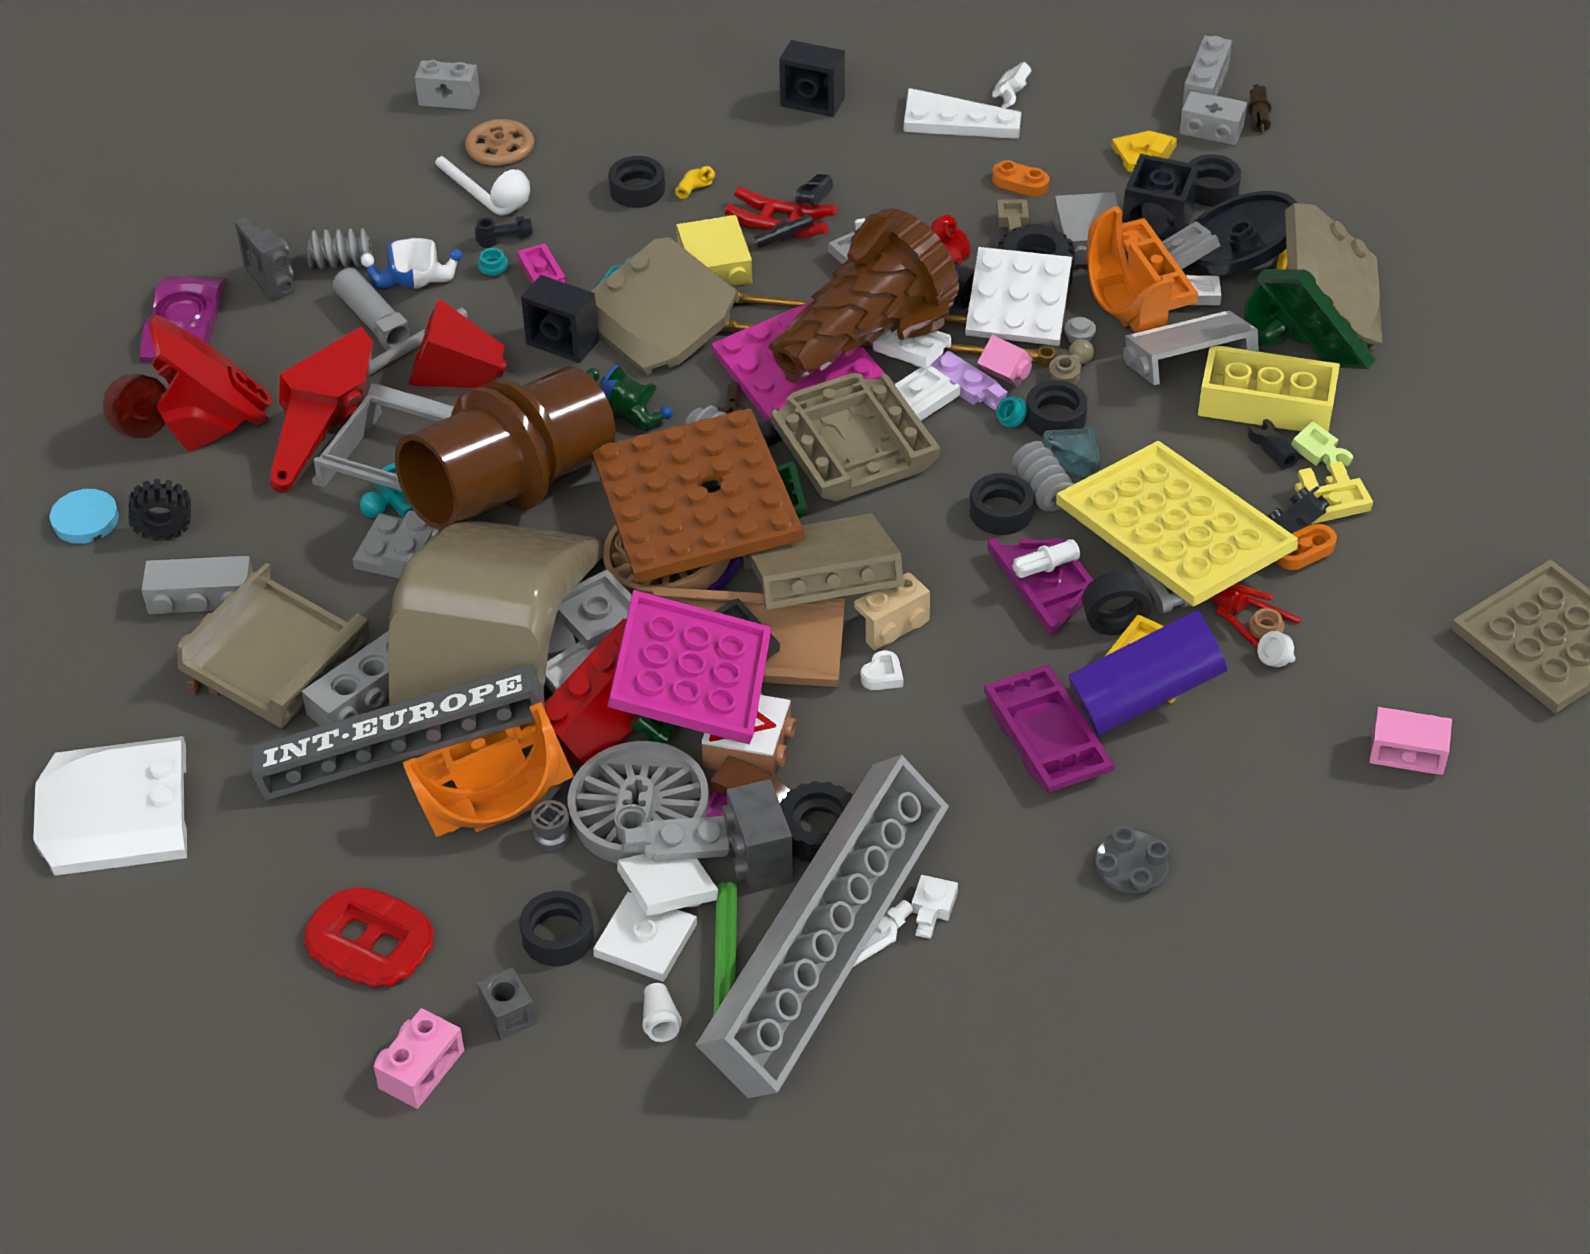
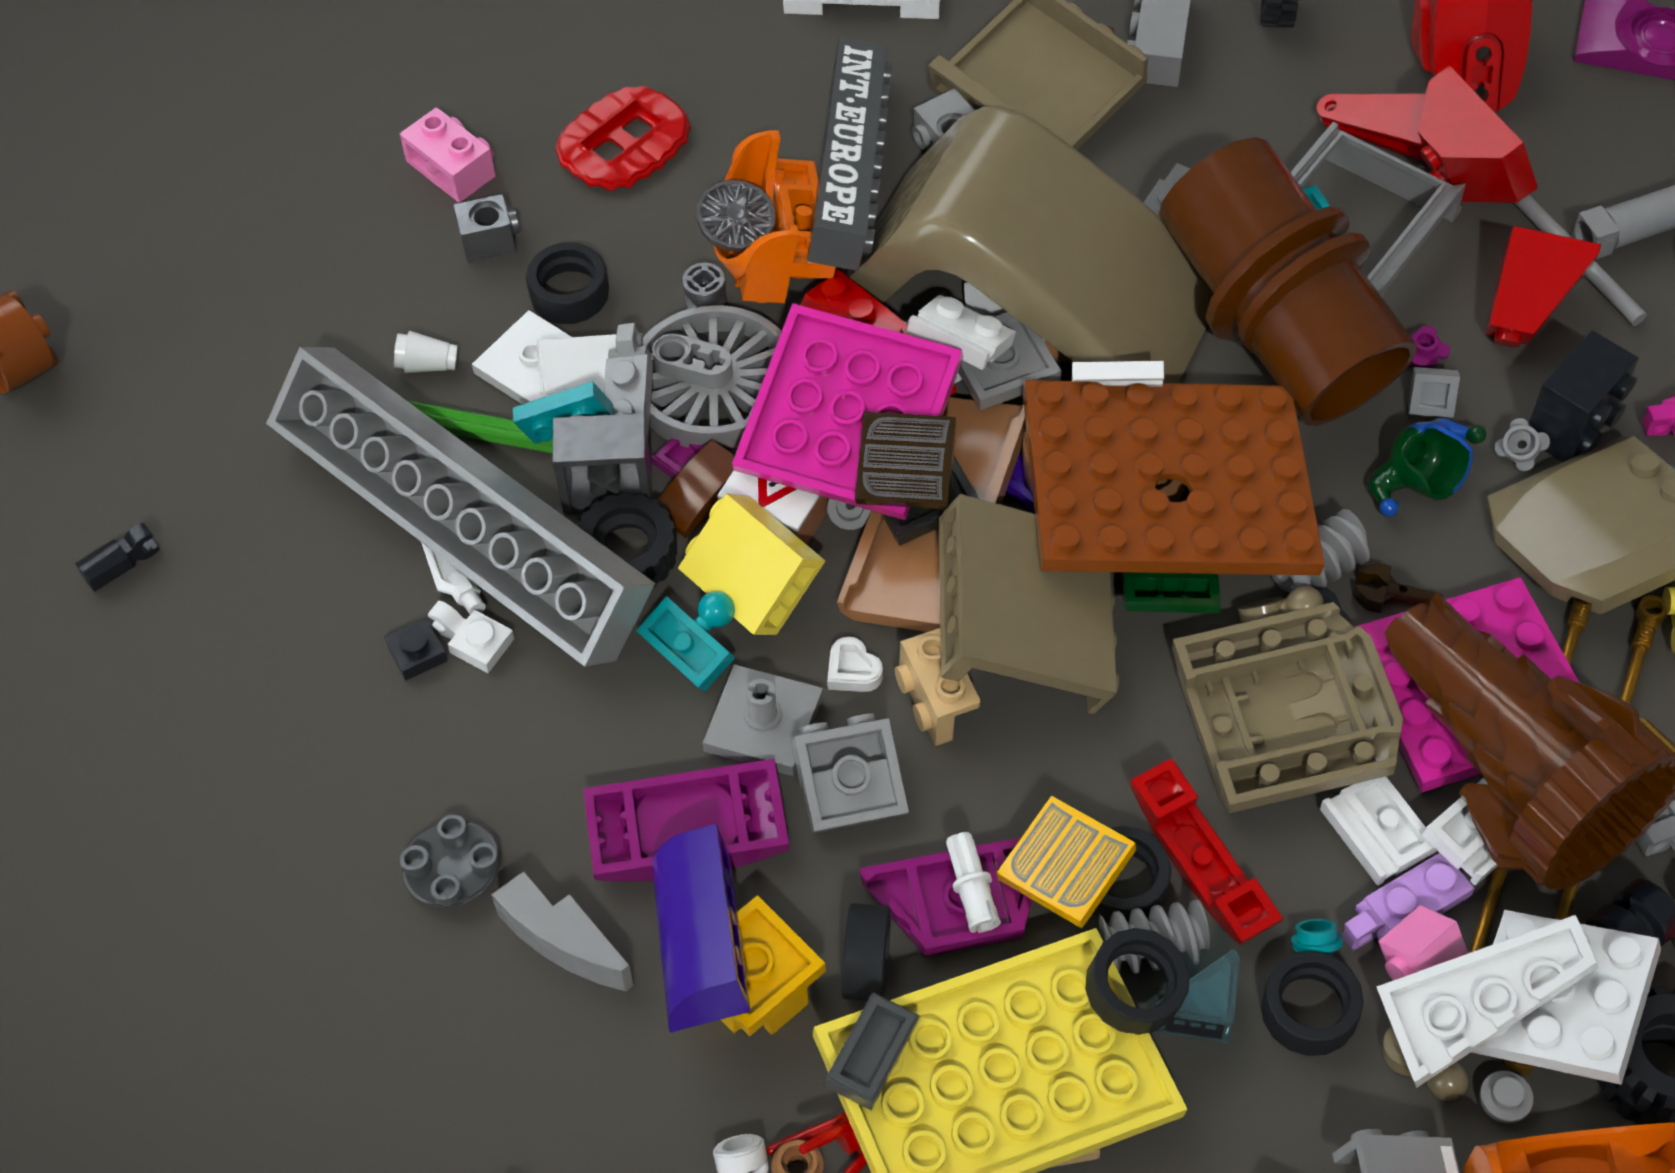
camera: 105 degrees right, 10 degrees up
(484, 796) = (734, 215): none -> flat silver wheel
(594, 354) = (1518, 432): none -> light grey plate
(594, 617) = (954, 325): none -> white plate
(612, 532) = (1120, 373): none -> white plate
(723, 867) = (537, 416): none -> teal plate
(733, 619) = (906, 460): none -> tile
(772, 434) = (1299, 598): none -> dark tan plate
(829, 723) = (751, 561): none -> light yellow brick
(909, 744) = (687, 640): none -> teal plate
(939, 1180) = (117, 557): none -> black bar
(944, 712) = (761, 717): none -> light grey tile
(955, 939) = (415, 649): none -> black plate
(959, 479) = (1200, 855): none -> red slope
(977, 646) = (849, 773): none -> light grey plate
(1012, 515) = (1066, 861): none -> yellow tile
(1041, 329) = (1476, 996): none -> white wing
(1089, 473) = (1154, 948): none -> black tyre
(1160, 779) = (561, 933): none -> light grey slope
(1198, 563) = (871, 1051): none -> dark grey tile

